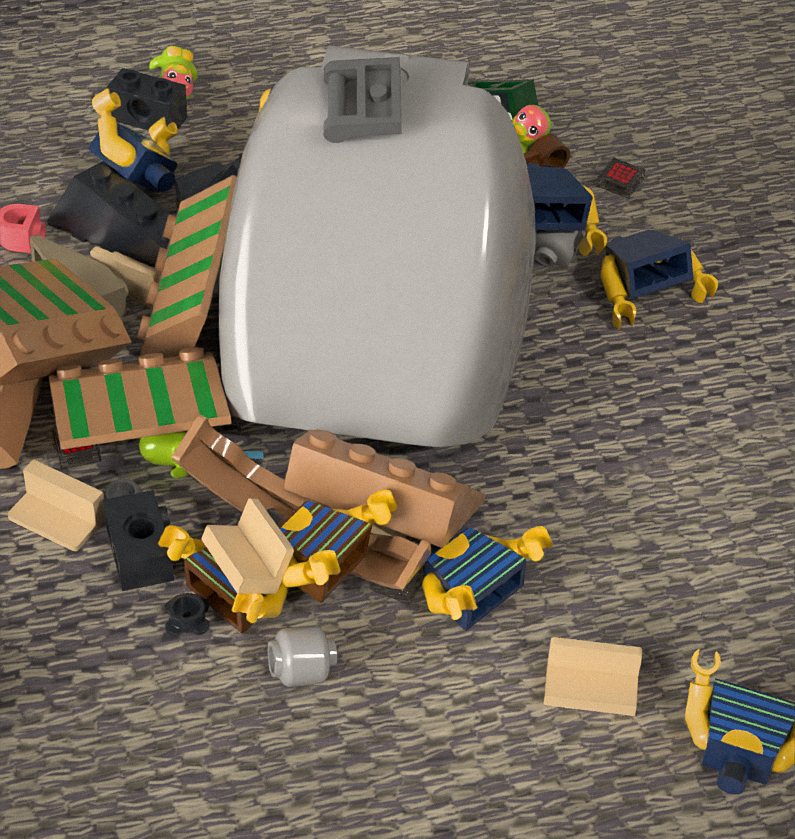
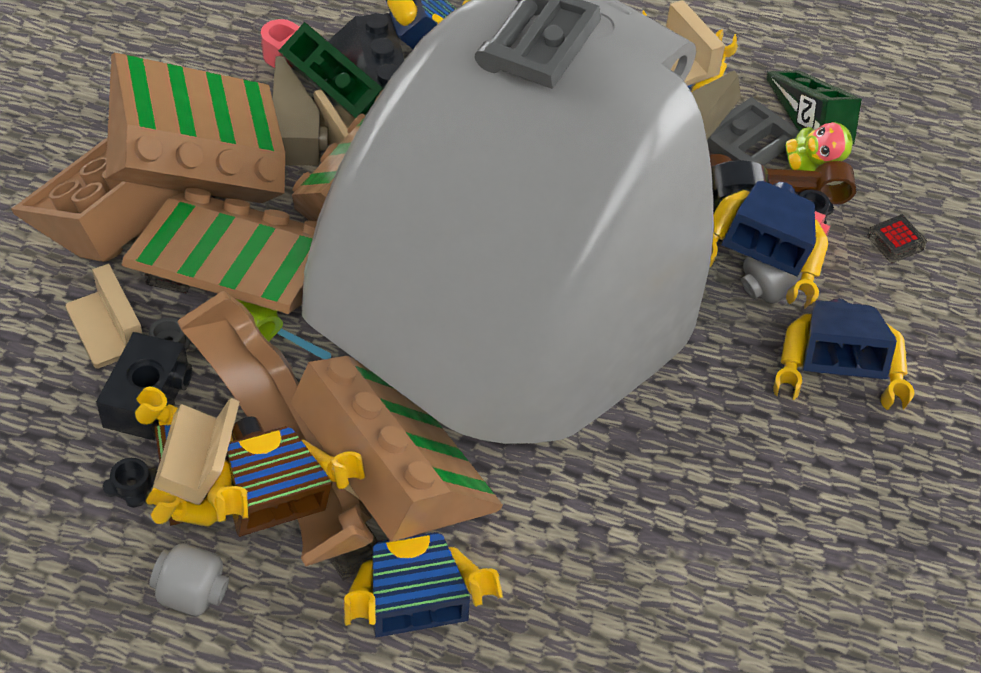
camera: 30 degrees right, 5 degrees up
(87, 226) = (330, 71): none -> dark green slope

